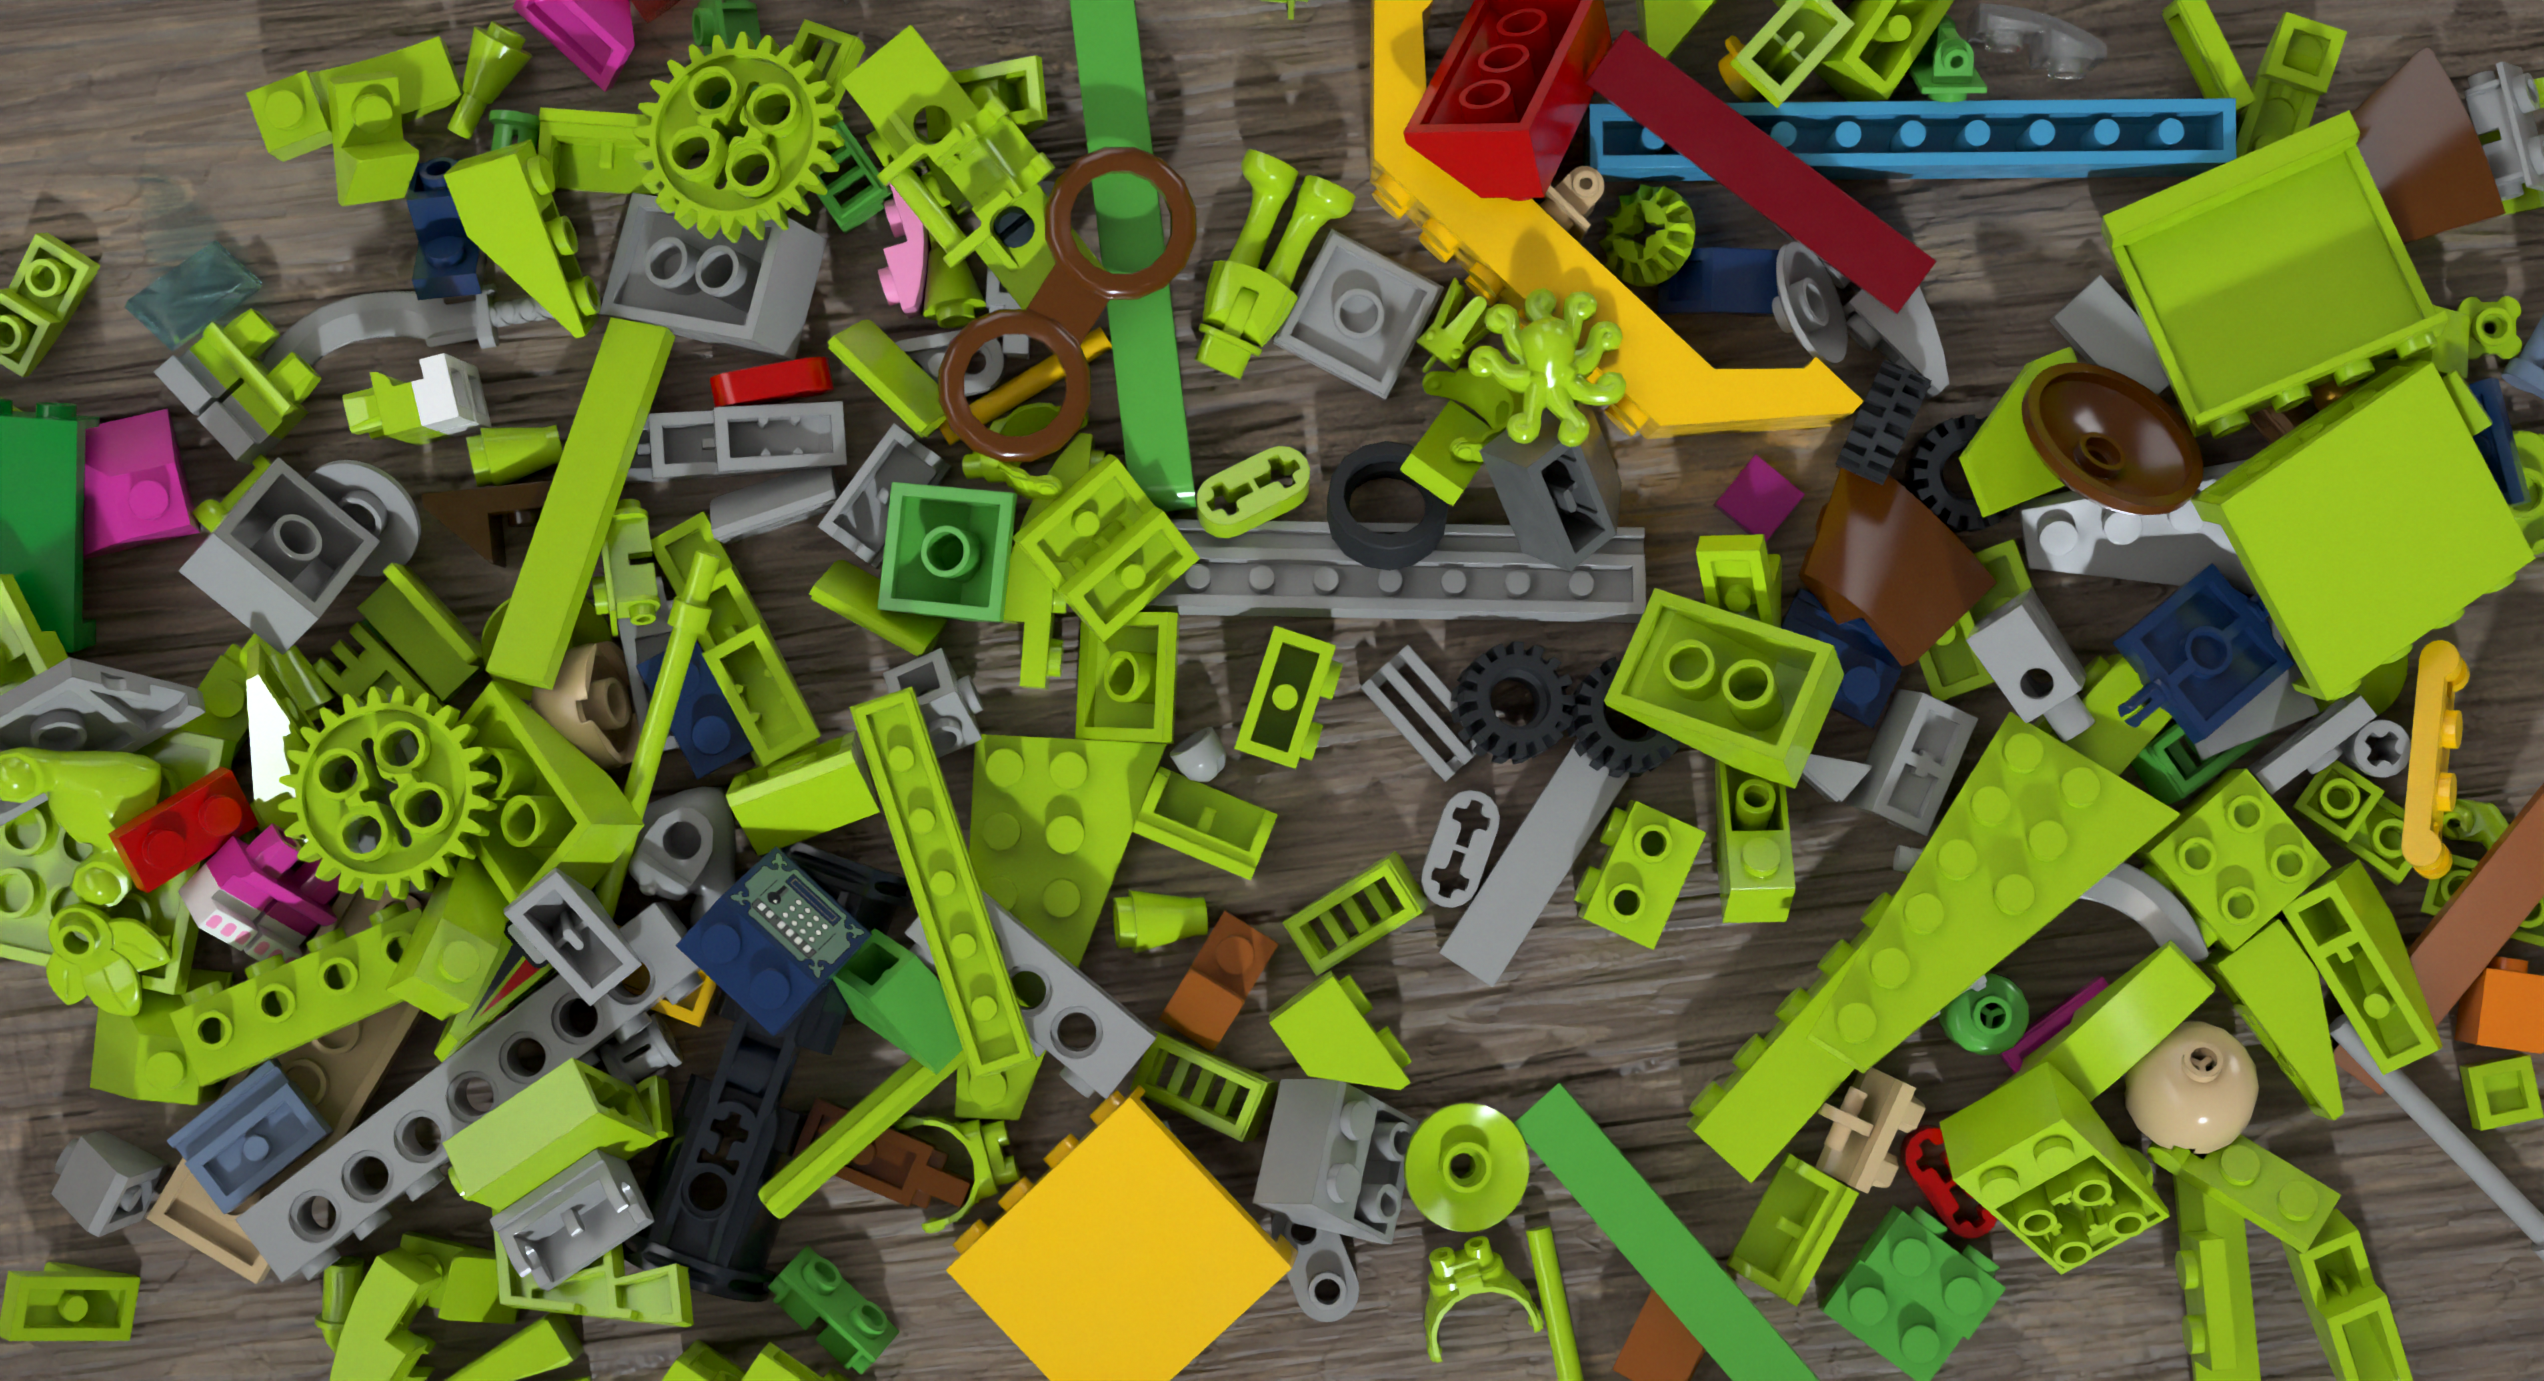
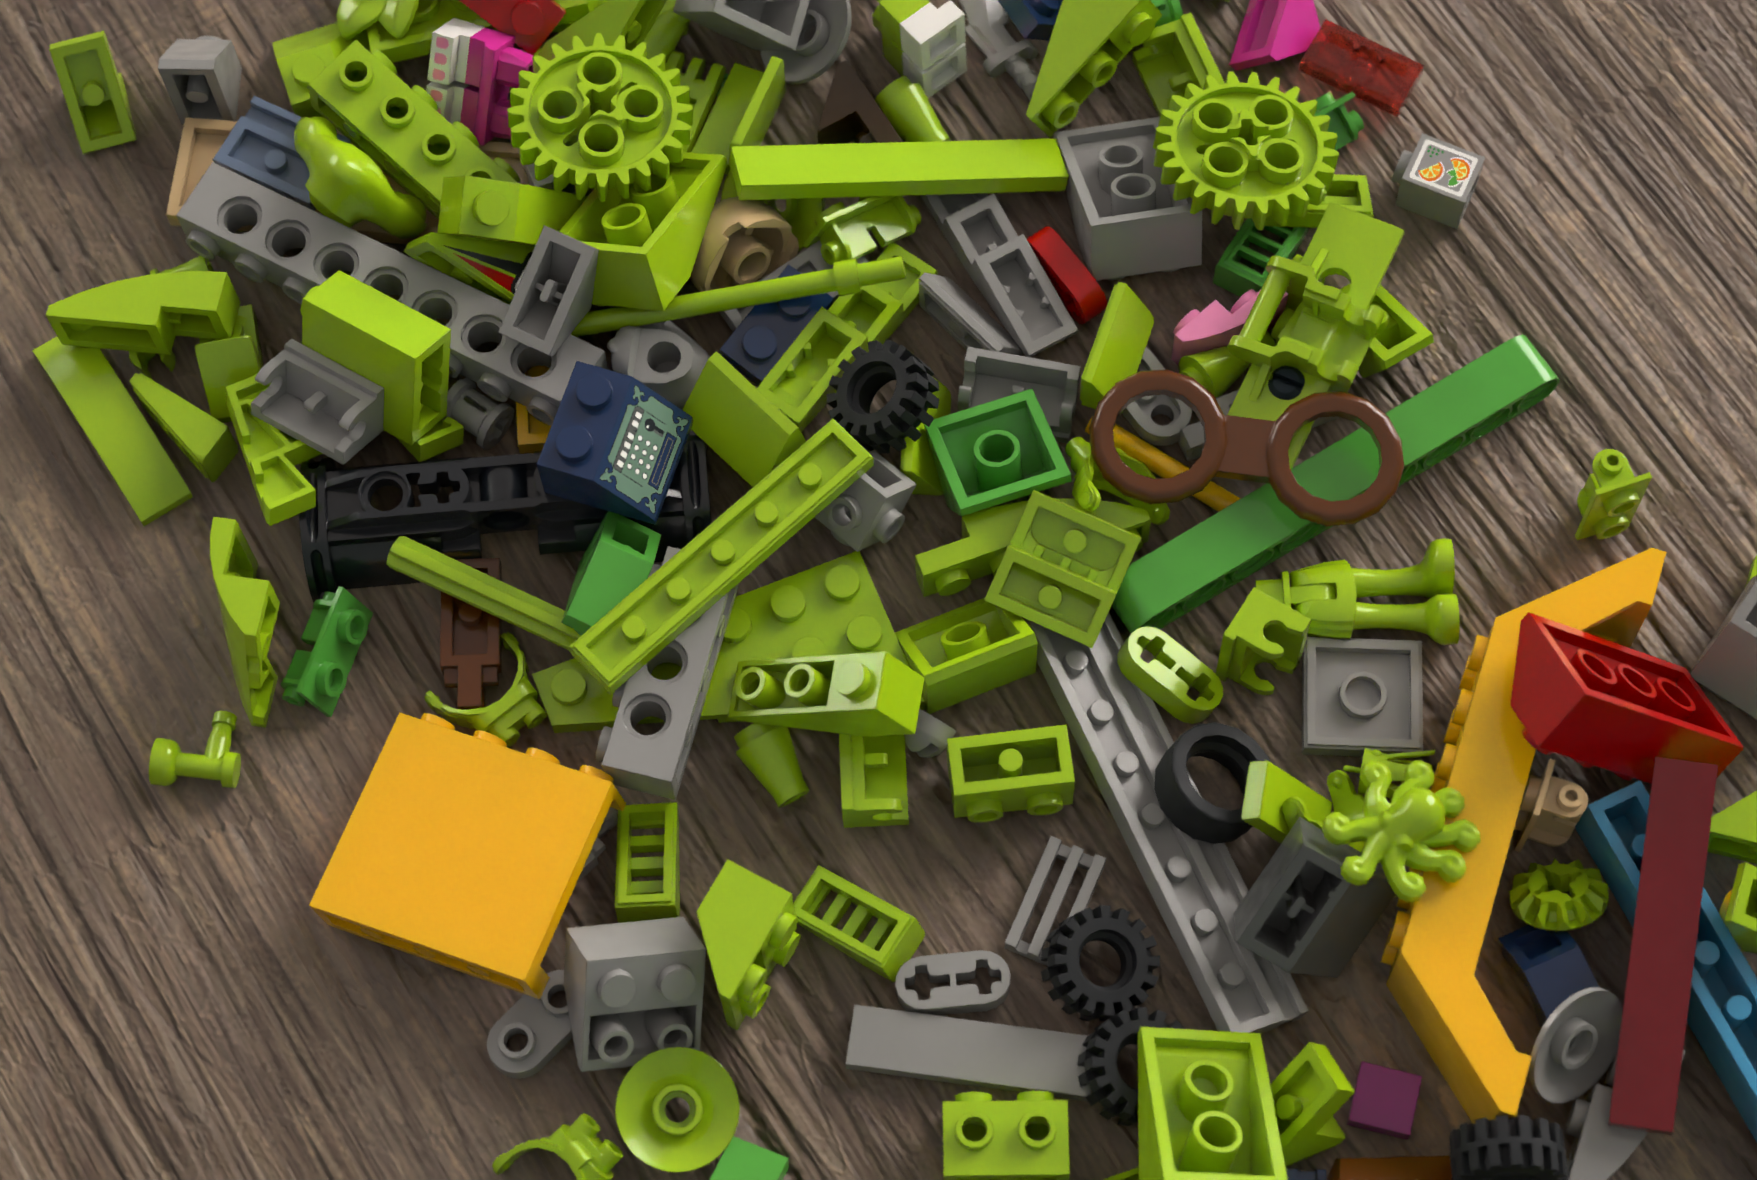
camera: 70 degrees right, 20 degrees down
(332, 1090) = (351, 185): none -> lime head
(814, 663) = (903, 411): none -> black tyre
(1133, 845) = (829, 694): none -> lime slope
(1218, 981) = (744, 834): dark orange slope -> none
(1267, 393) = (1261, 633): none -> lime hinge

